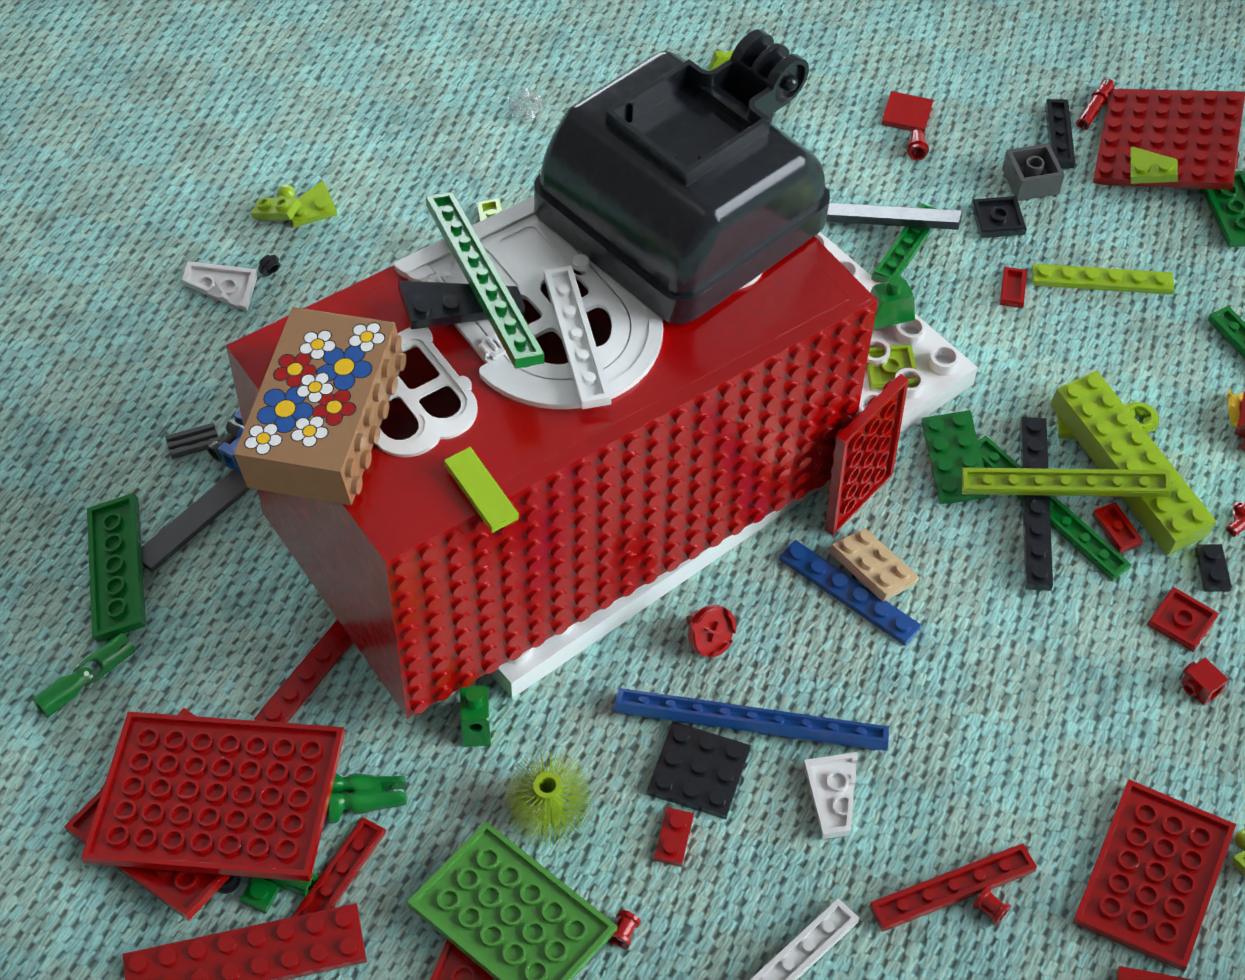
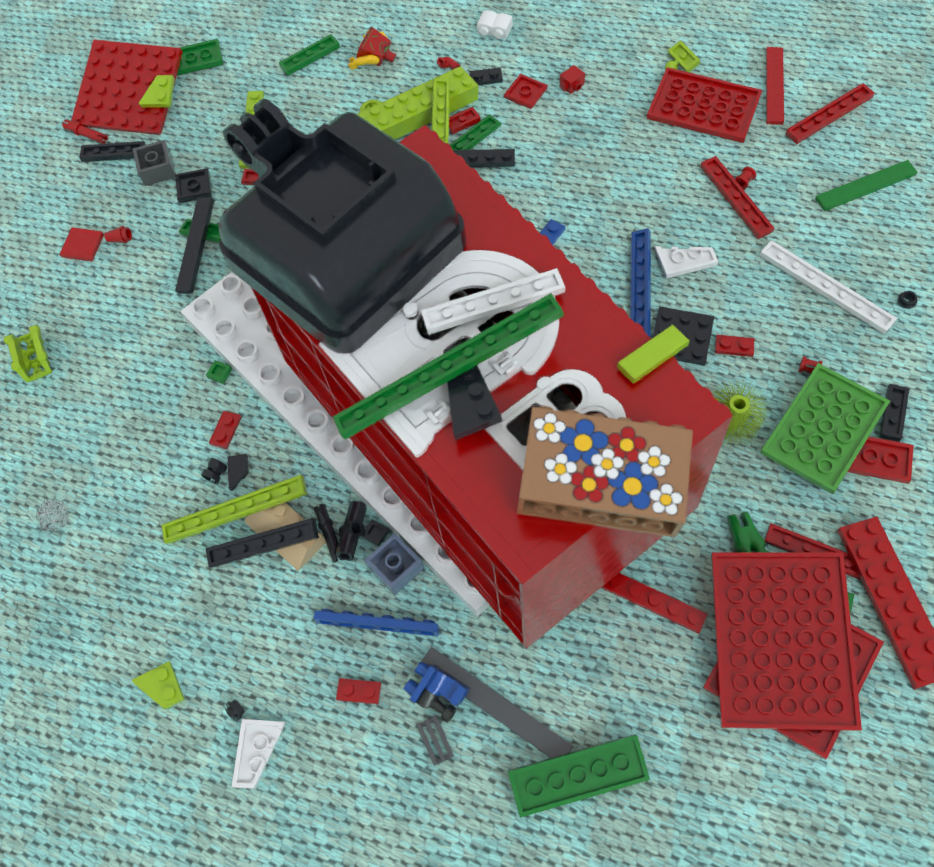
camera: 85 degrees left, 10 degrees up
(68, 686) = (701, 791): green piece -> none
(277, 208) = (165, 715): lime plate -> none

